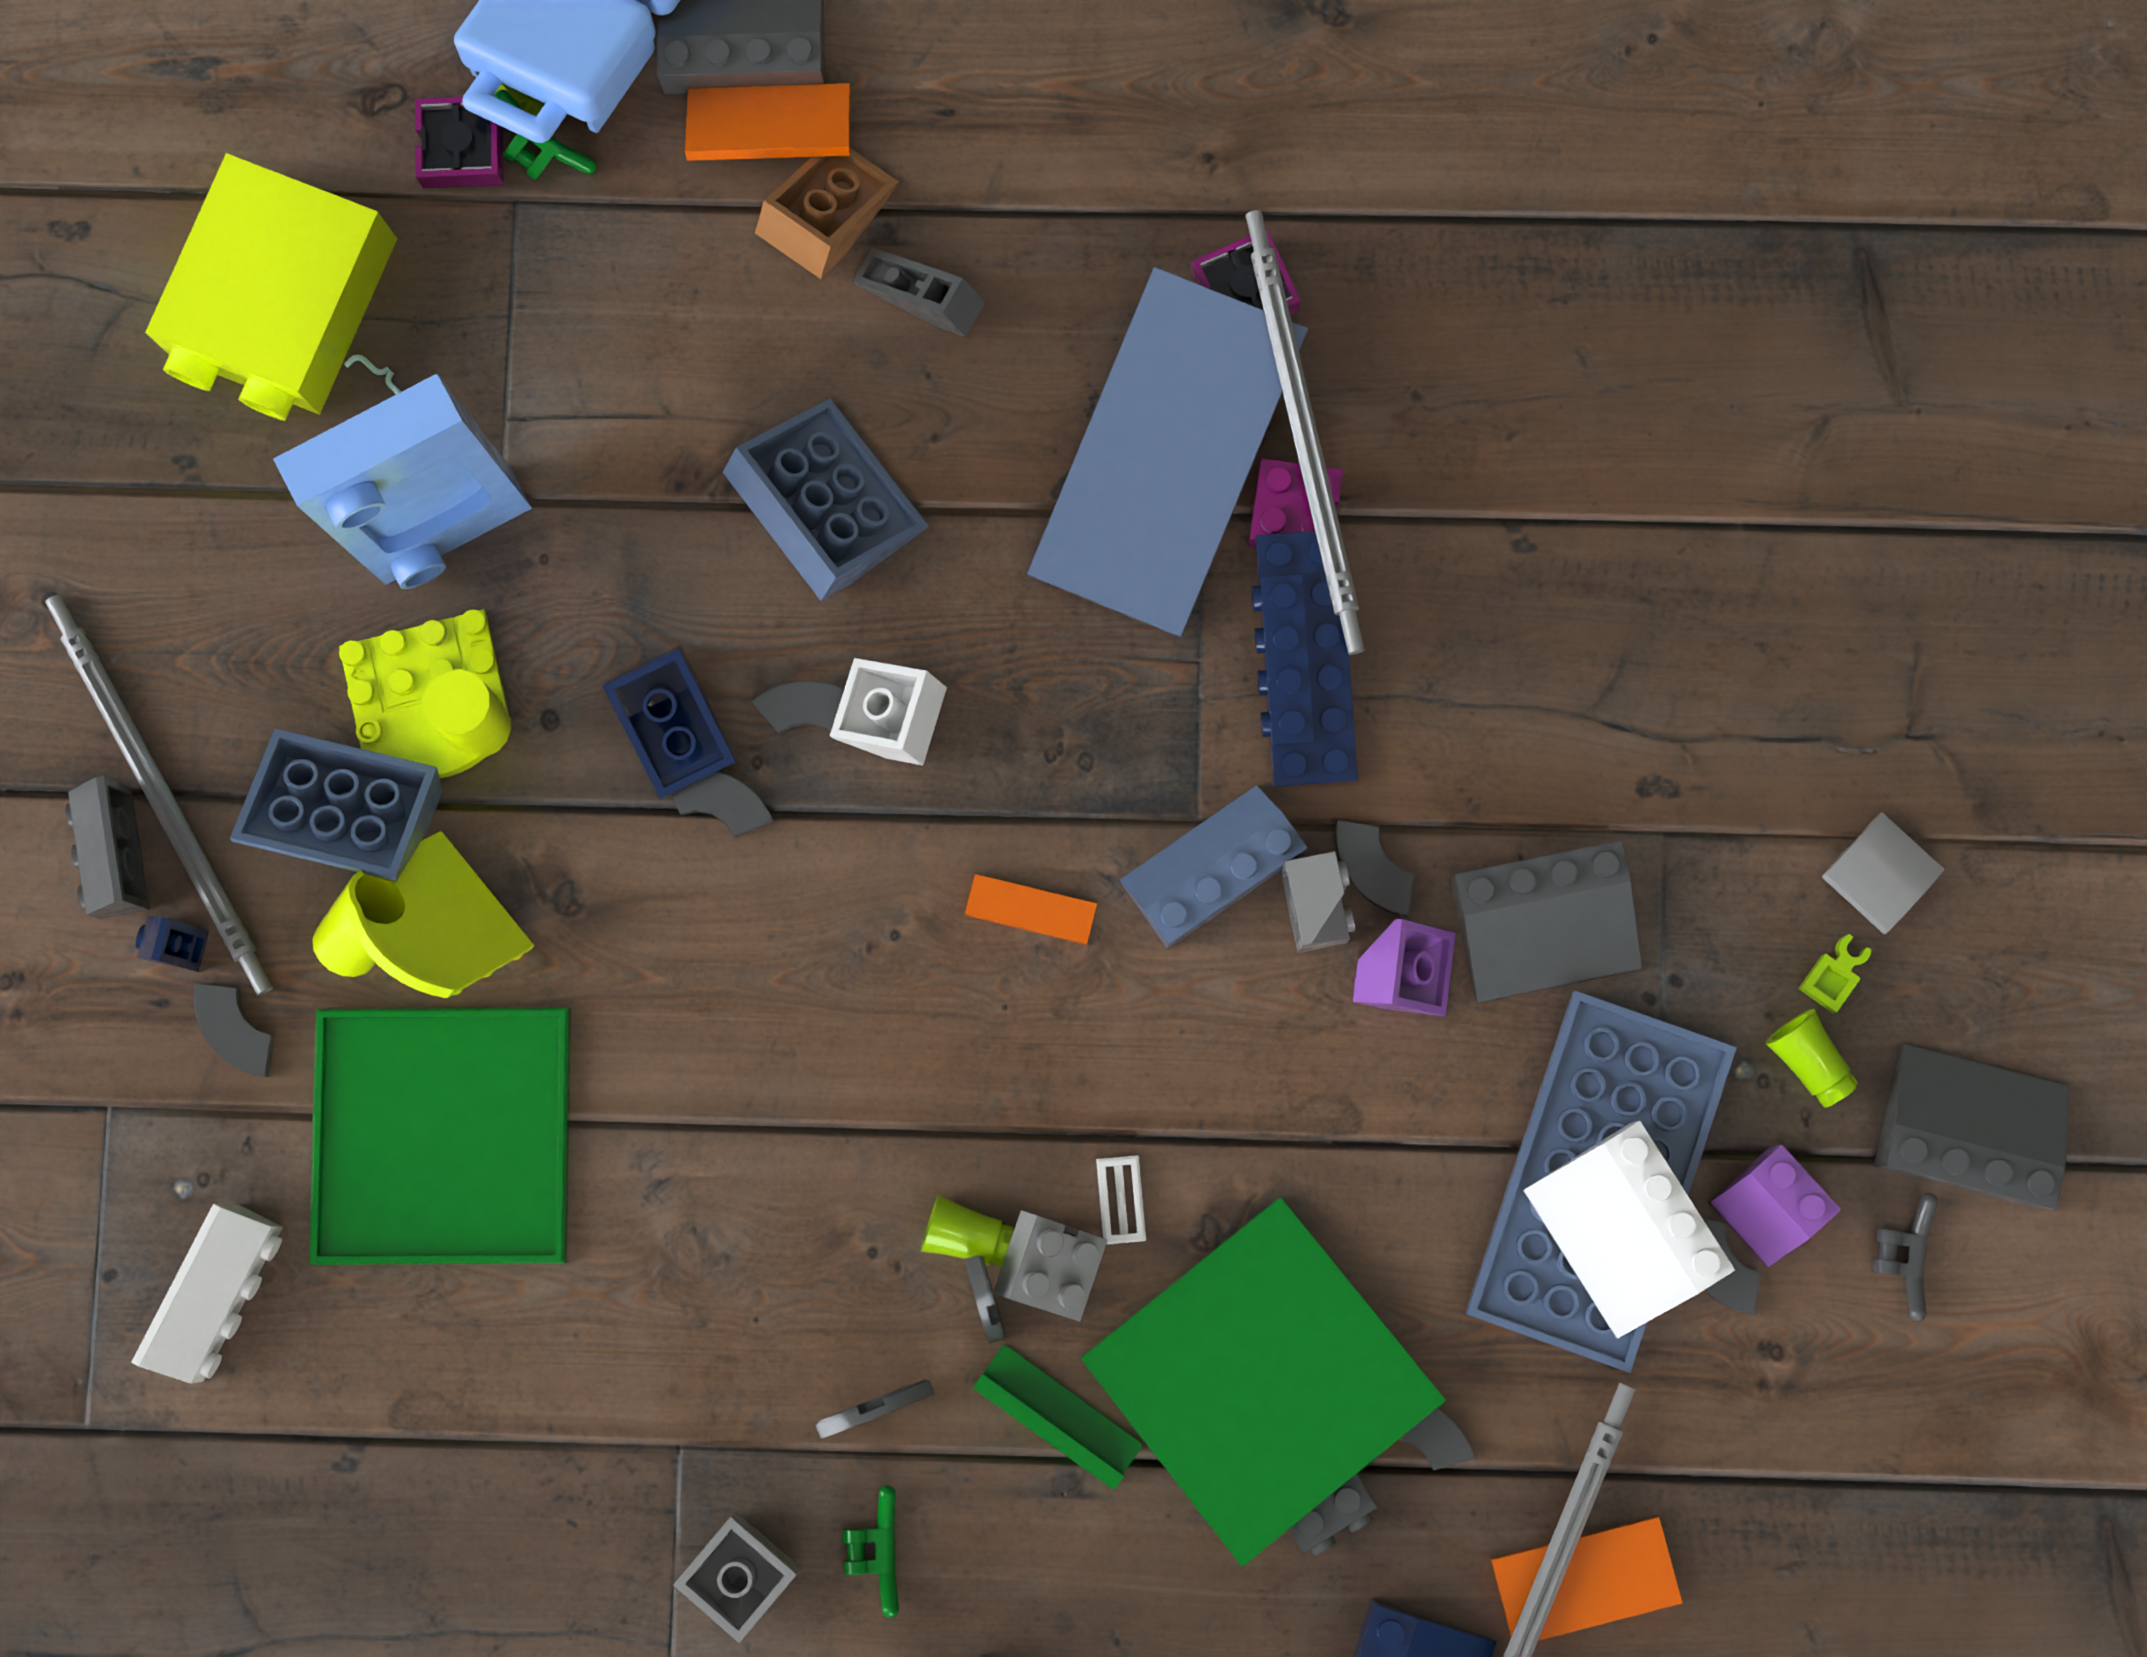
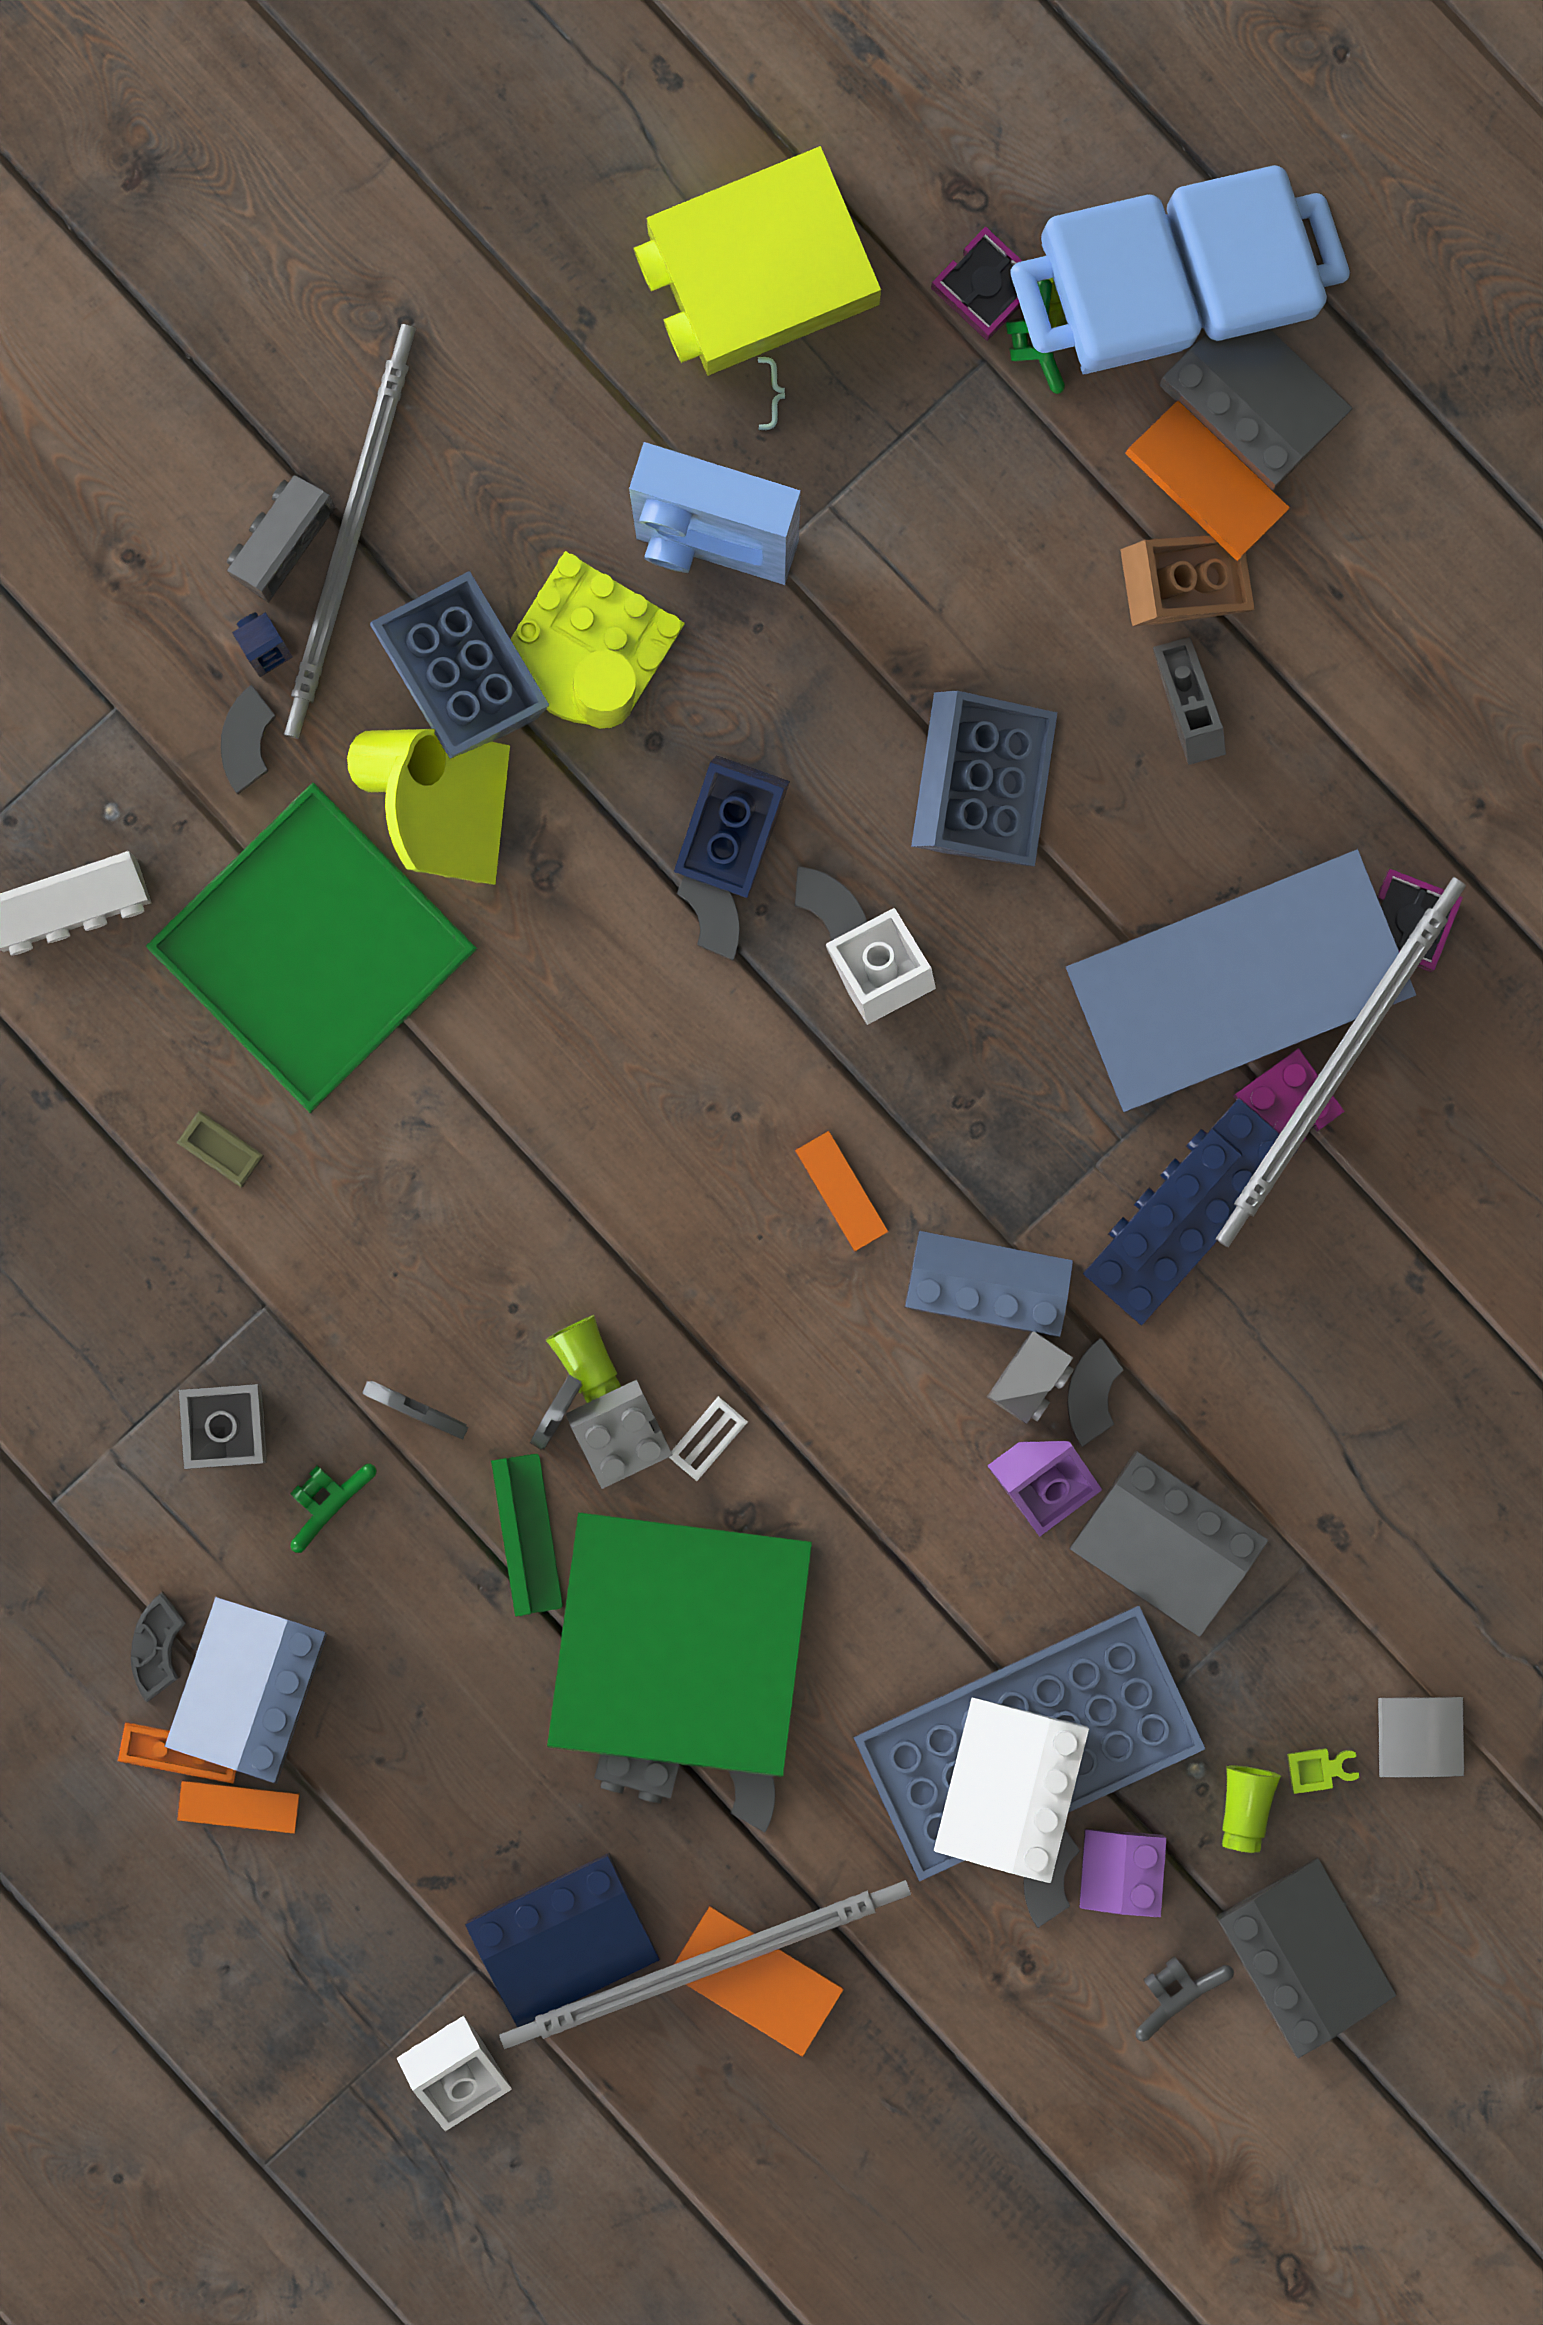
camera: 40 degrees right, 5 degrees up
(523, 1361) = (220, 1149): none -> olive tile

